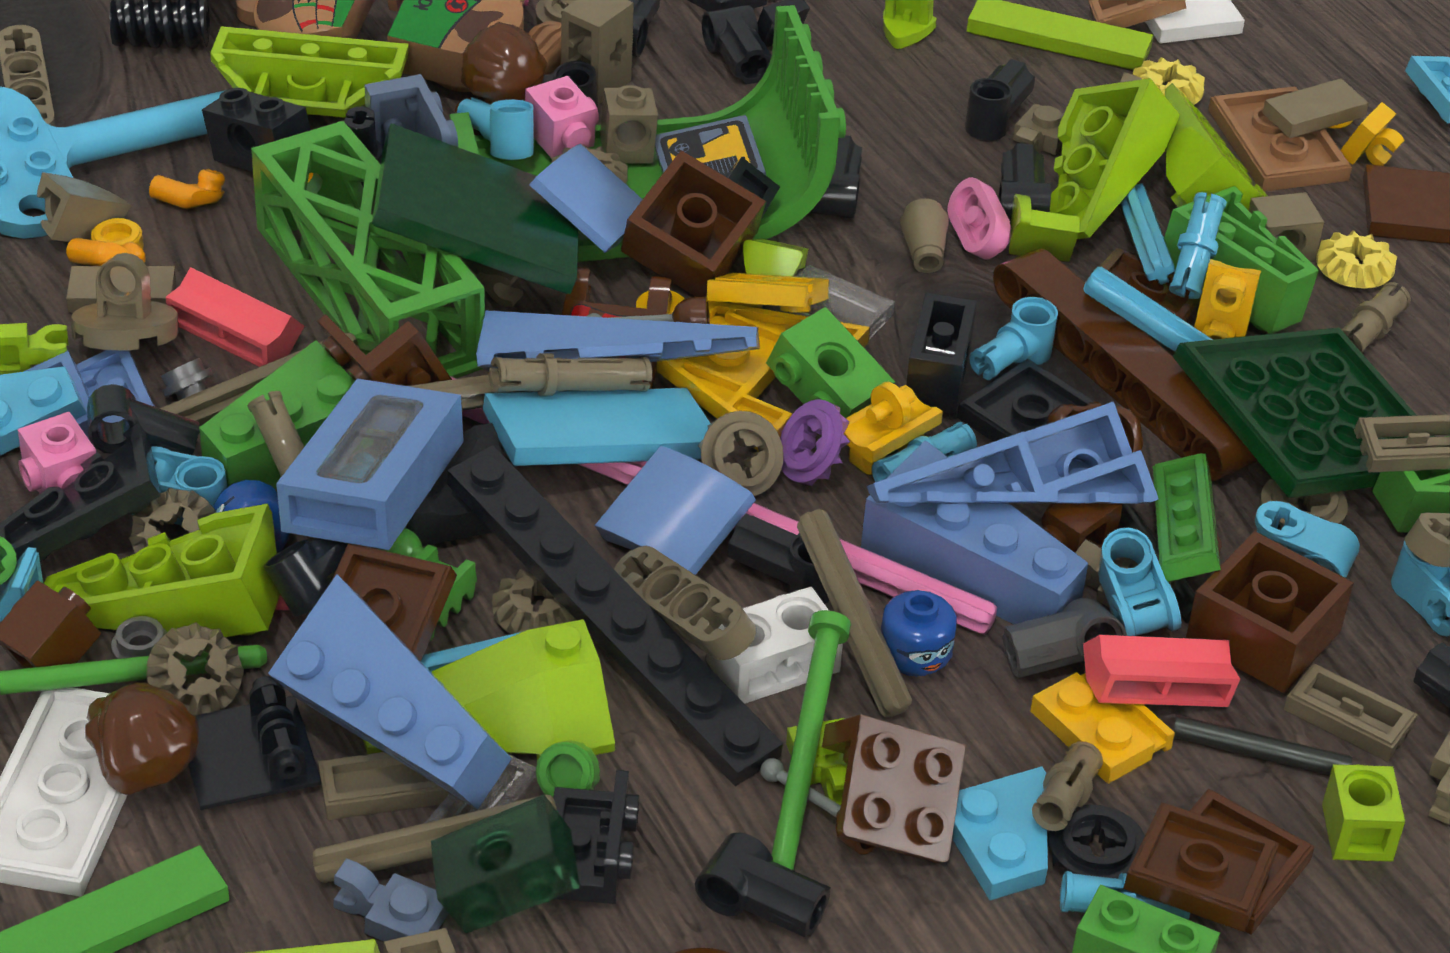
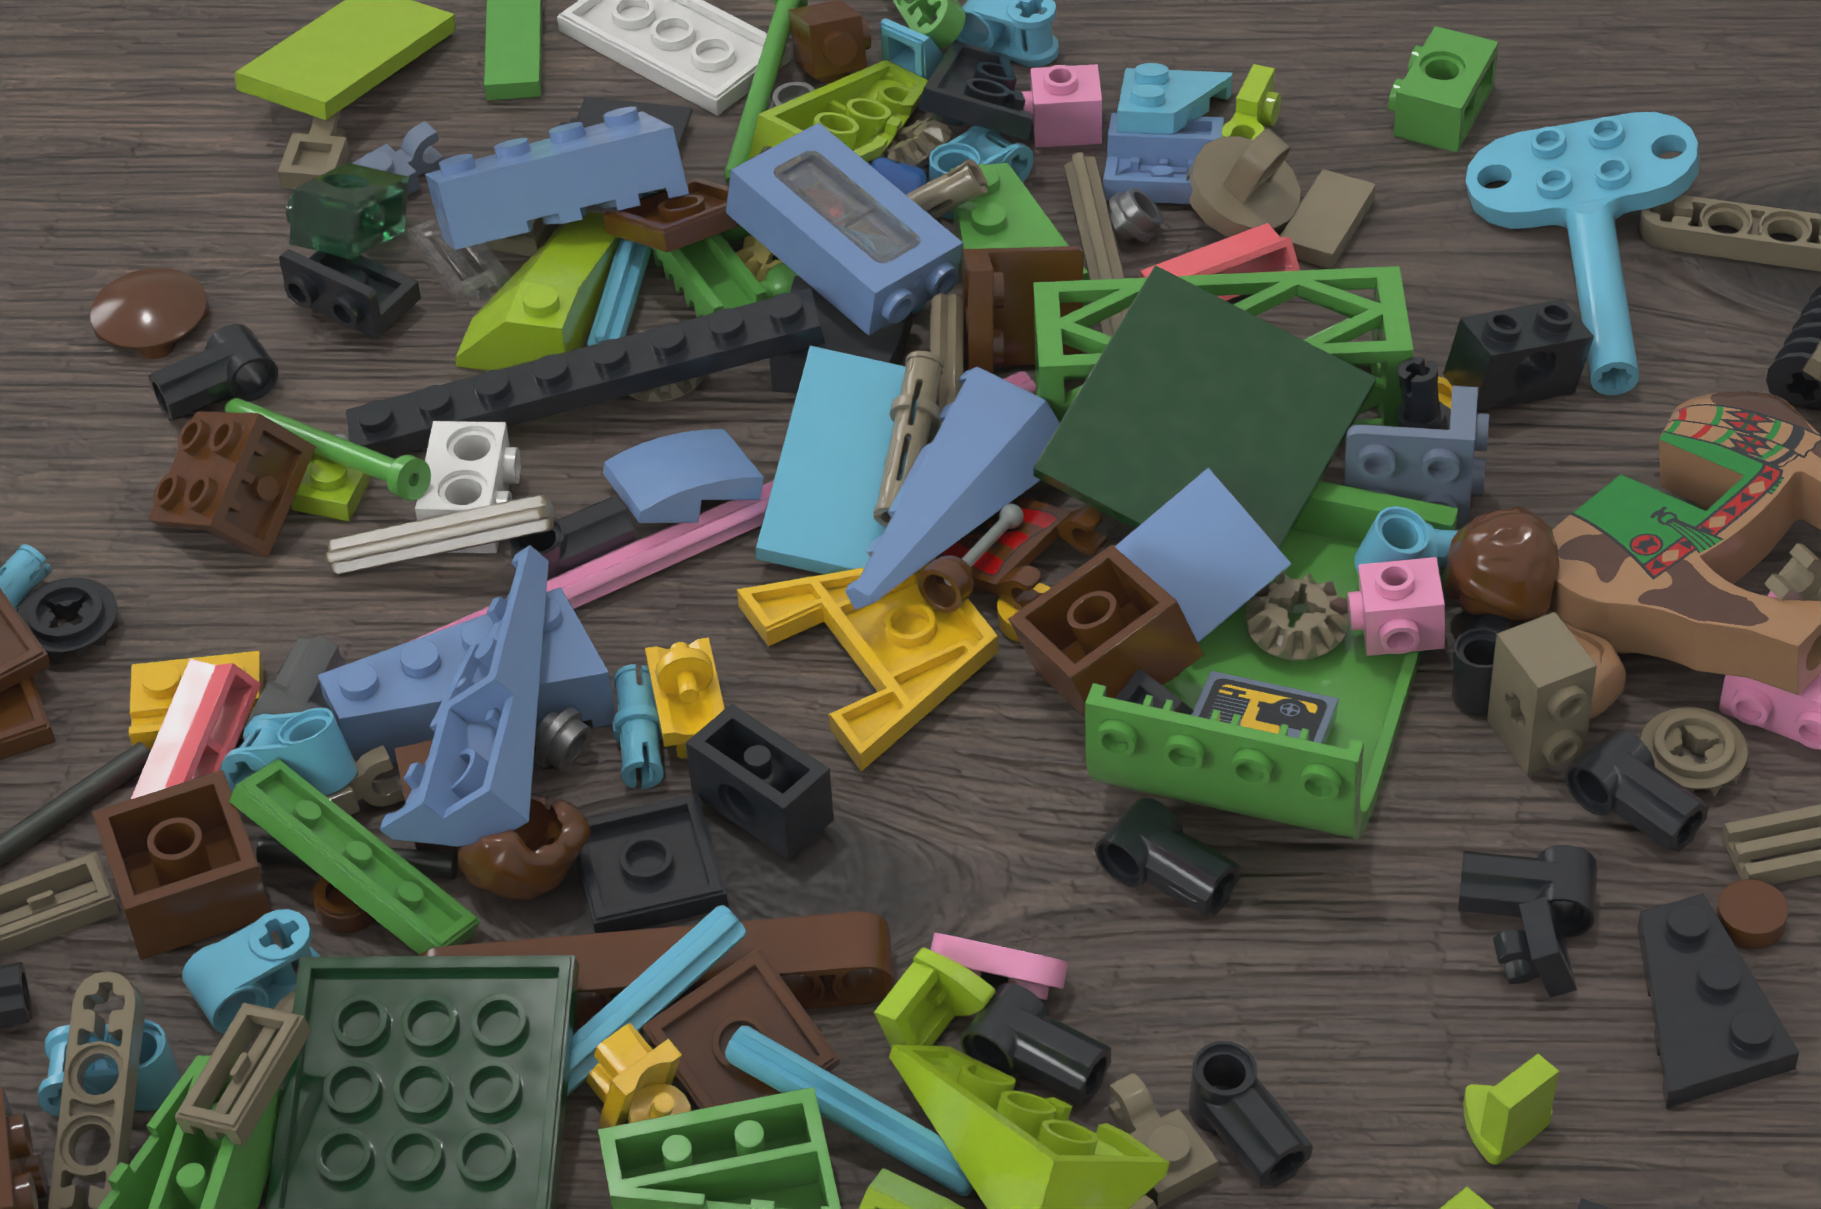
camera: 125 degrees right, 5 degrees up
(76, 206) = (1466, 197): dark tan brick -> none
(98, 252) = (1378, 210): light orange arm -> none
(118, 231) = (1418, 237): yellow tile -> none
(141, 737) = (658, 55): reddish brown hair -> none
(161, 426) = (1059, 132): black piece -> none
(187, 196) = (1475, 297): light orange arm -> none
(222, 663) = (713, 129): dark tan gear -> none
(306, 69) = (1612, 406): lime wedge -> none
(397, 846) = (414, 206): dark tan axle -> none
(567, 766) = (434, 300): bright green tile -> none
(634, 139) = (1354, 663): dark tan brick -> none
(686, 597) = (536, 412): dark tan beam -> none
(750, 430) = (727, 554): dark tan gear -> none
(756, 290) = (965, 674): yellow plate -> none
(773, 257) = (1045, 732): lime tile -> none
(799, 438) = (705, 620): medium lavender gear -> none
(826, 363) = (795, 668): bright green brick -> none
(851, 302) = (946, 773): clear tile -> none
(919, 632) = (387, 583): blue head -> none
(925, 233) = (1006, 899): dark tan cone -> none
(1000, 834) = (145, 566): medium azure wing -> none
(1024, 337) = (751, 884): medium azure pin -> none
(1067, 786) = (110, 580): dark tan pin -> none
(1197, 245) = (728, 1069): medium azure pin -> none

